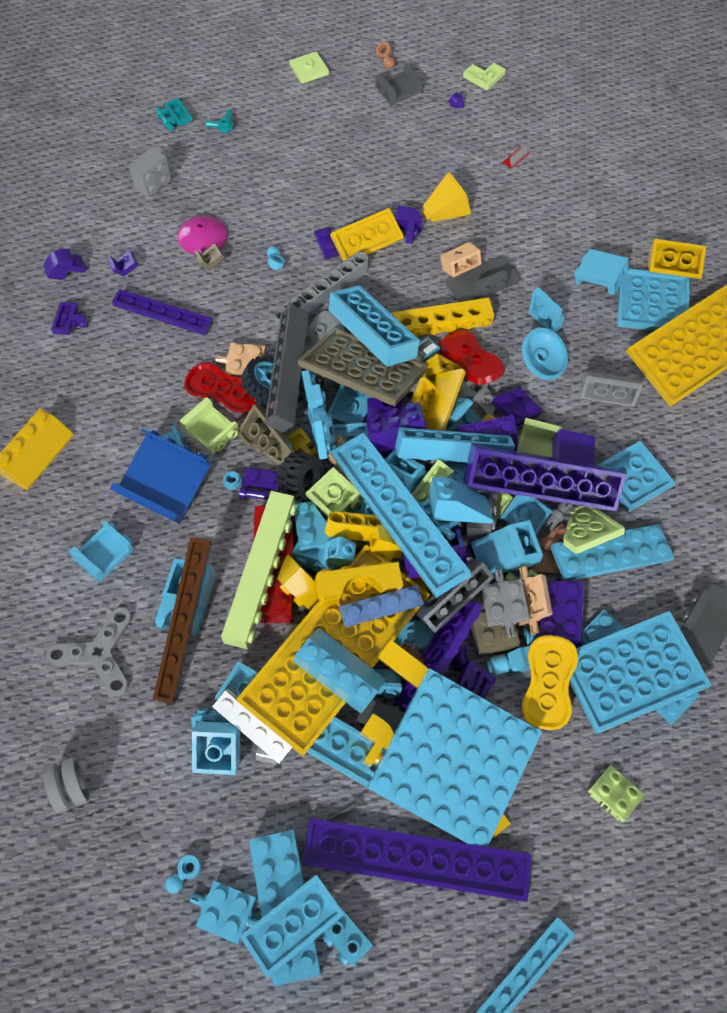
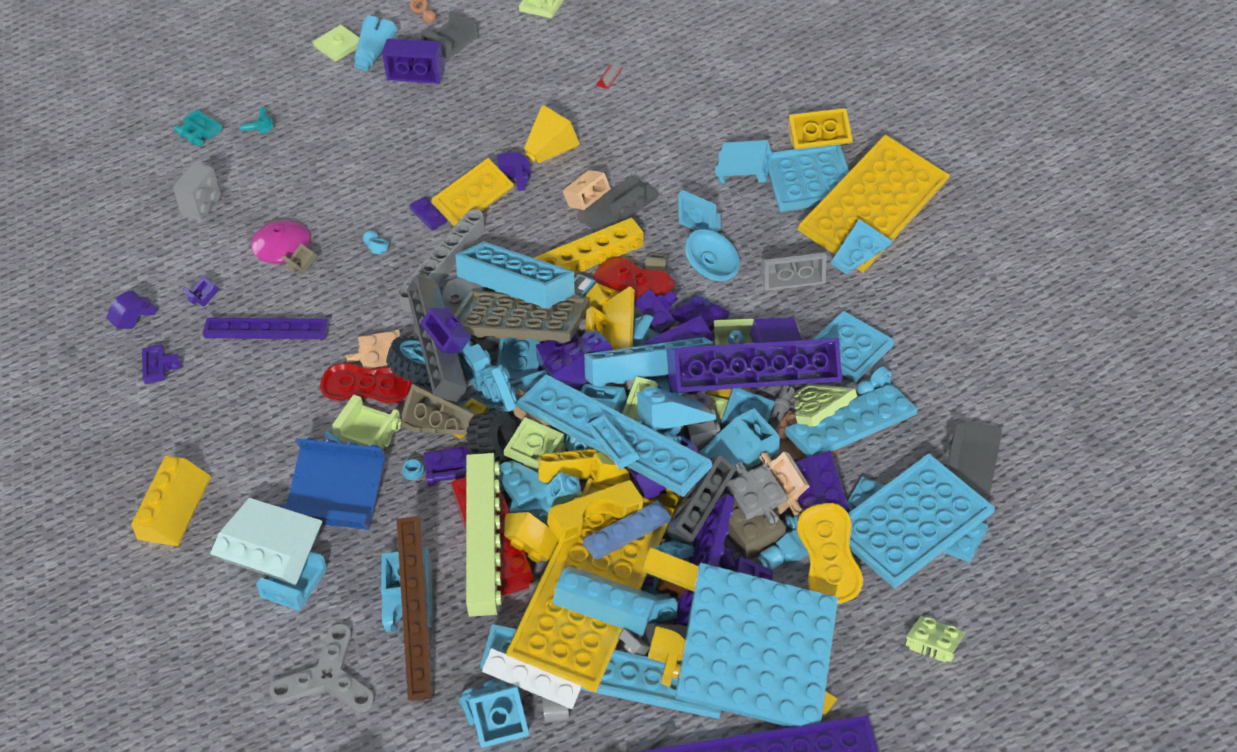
camera: 15 degrees left, 15 degrees down
(89, 515) = (267, 540): none -> light aqua slope
(293, 366) = (445, 330): none -> dark purple brick
(336, 73) = (372, 40): none -> medium azure piece
(351, 718) = (633, 643): none -> light grey plate
(360, 100) = (413, 61): none -> dark purple brick
(393, 522) = (612, 441): none -> medium azure tile
(417, 634) = (676, 549): none -> medium azure plate
(456, 100) = (521, 36): dark purple plate -> none
(481, 393) = (658, 308): none -> dark purple hinge
(497, 344) = (656, 262): none -> dark tan slope
(539, 444) = (740, 340): none -> medium azure hinge
(651, 517) = (879, 379): none -> medium azure plate
(674, 384) = (859, 247): none -> medium azure wing

